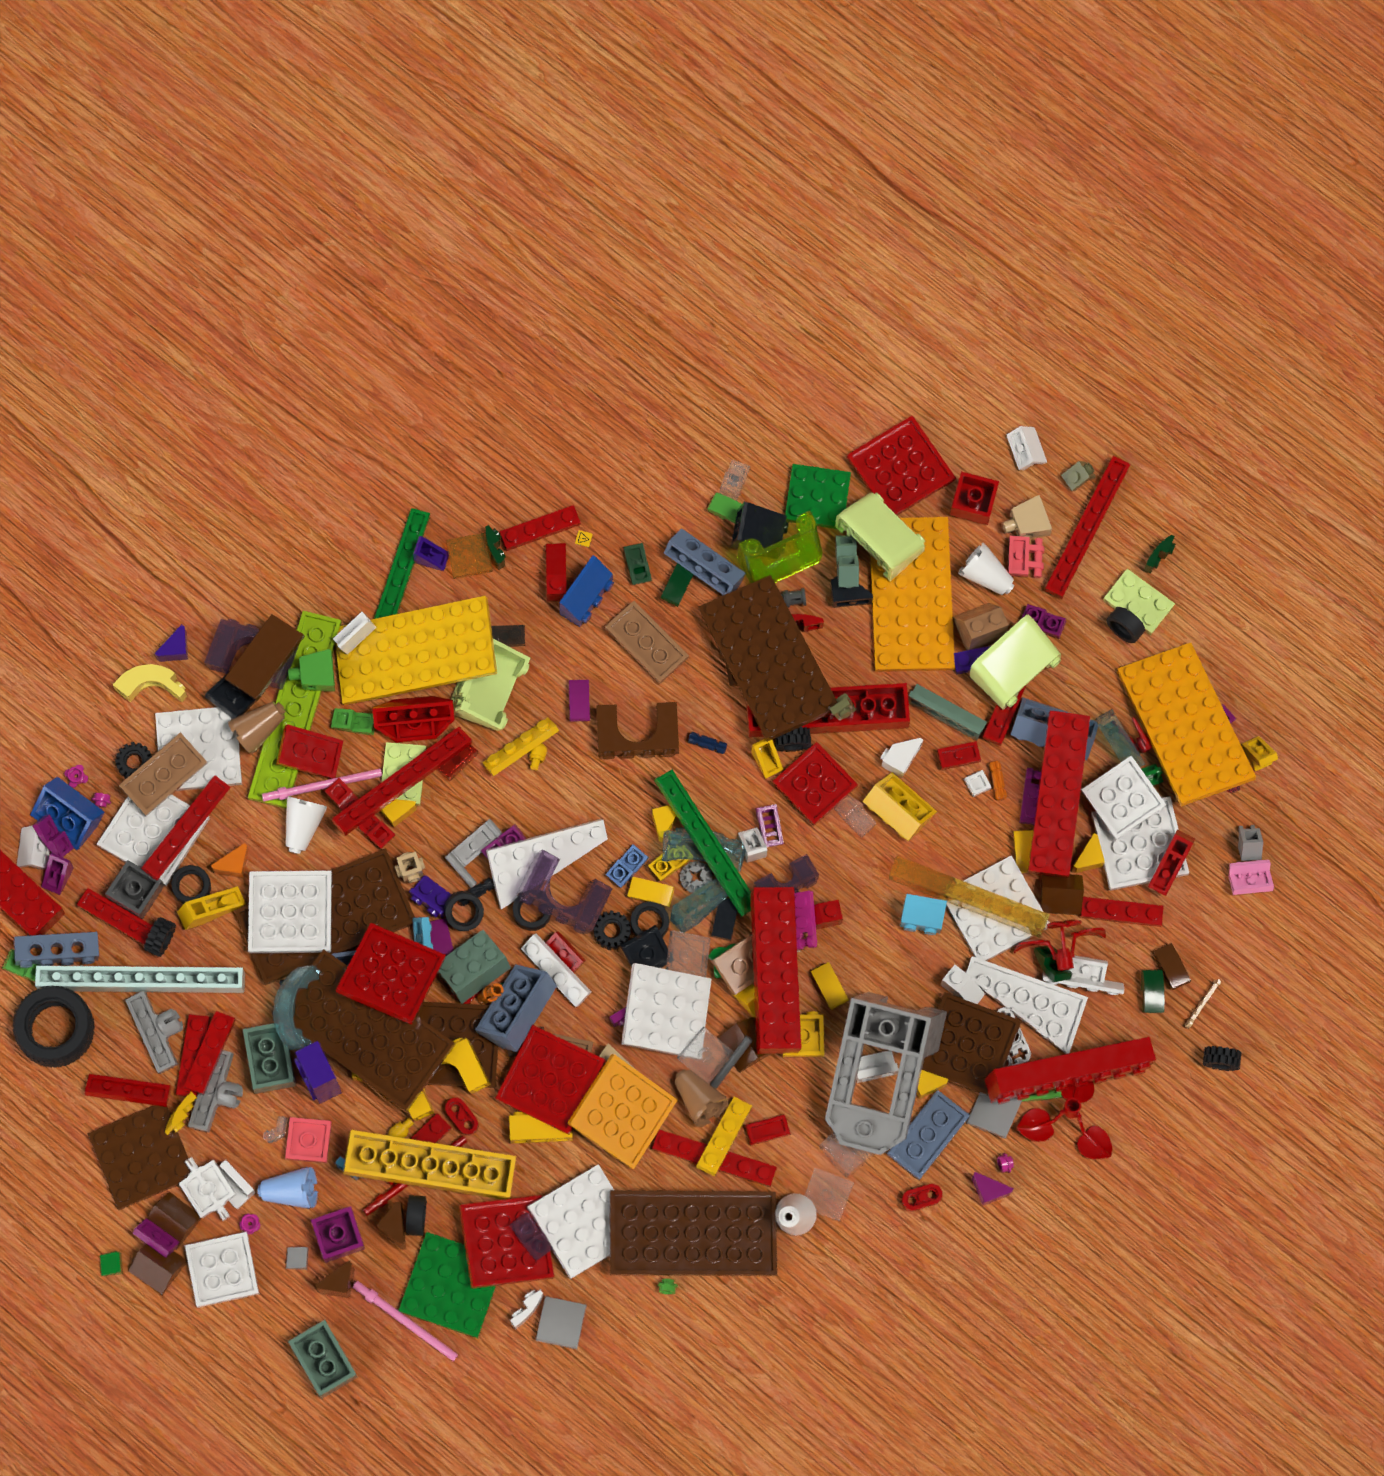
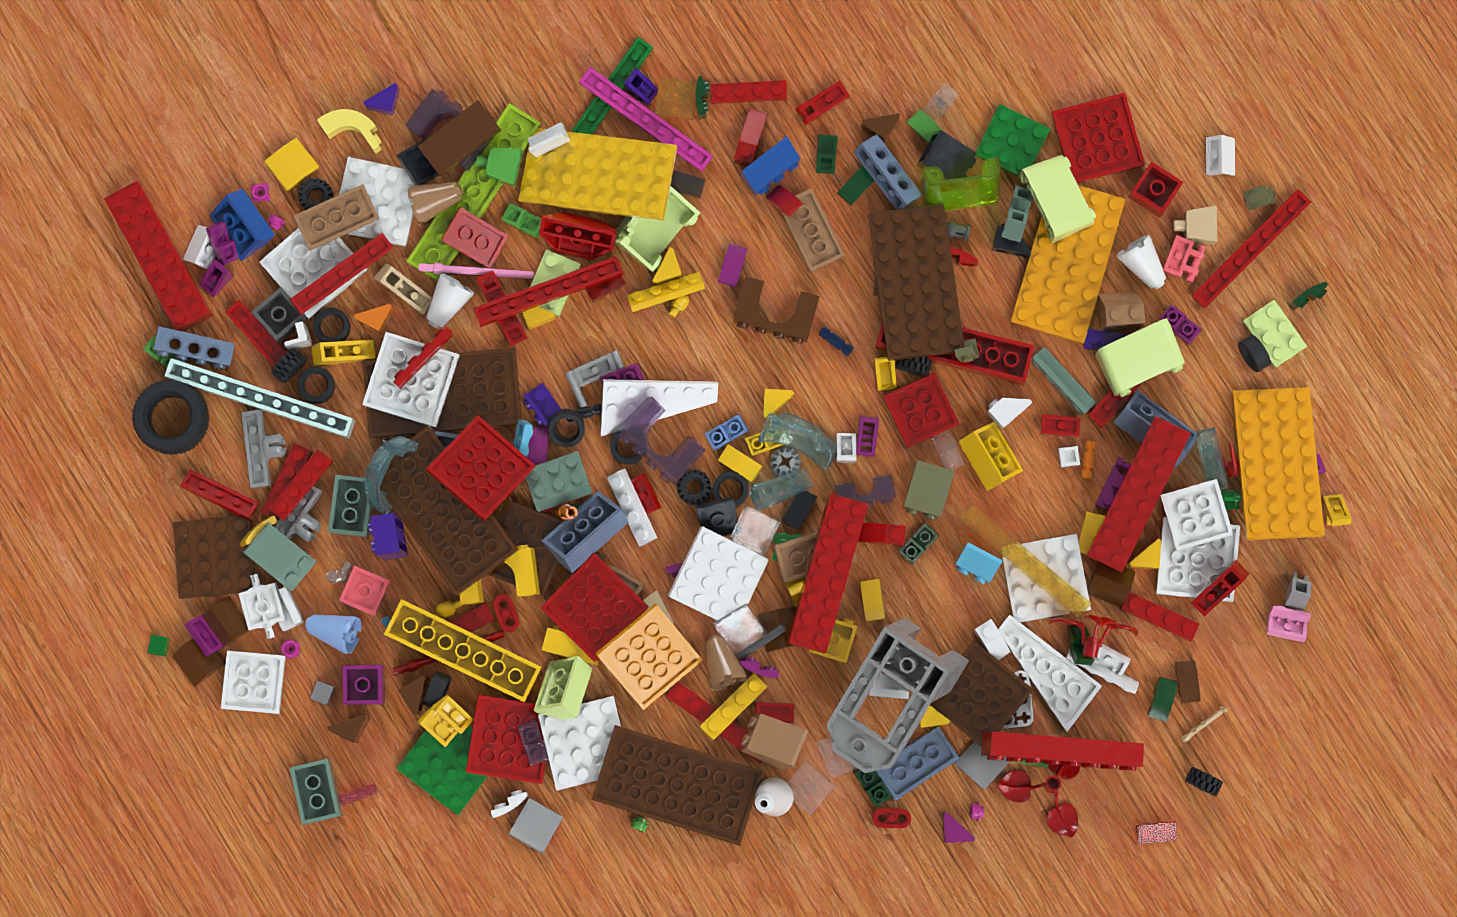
camera: 20 degrees right, 10 degrees up
(99, 738) = (291, 164): none -> yellow slope
(166, 908) = (304, 338): none -> white panel
(193, 933) = (316, 399): none -> black tyre
(211, 1130) = (280, 556): none -> sand green slope
(252, 824) = (403, 288): none -> tan slope
(299, 877) = (427, 353): none -> red plate
(367, 1350) = (358, 794): none -> clear pink axle
(372, 1297) = (377, 748): bright pink bar -> none
(410, 860) = (531, 365): tan brick -> none
(434, 1241) = (445, 720): none -> yellow slope
(443, 583) = (645, 118): none -> dark pink plate
(516, 723) = (668, 269): none -> yellow slope
(545, 1171) = (563, 688): none -> yellowish green slope
(583, 538) = (785, 114): yellow sticker -> none
(610, 619) = (784, 200): none -> red slope
(617, 515) = (823, 102): none -> red plate
(682, 519) = (881, 125): none -> reddish brown slope
(705, 841) = (803, 434): green tile -> none
(731, 1089) = (754, 667): none -> magenta slope
(777, 1156) = (773, 741): none -> medium nougat slope
(805, 920) = (869, 535): dark pink plate -> none
(848, 857) = (928, 490): none -> olive slope
(857, 915) = (918, 543): none -> dark green slope
(891, 1170) = (873, 786): none -> dark green slope
(1192, 1126) = (1156, 832): none -> clear red slope

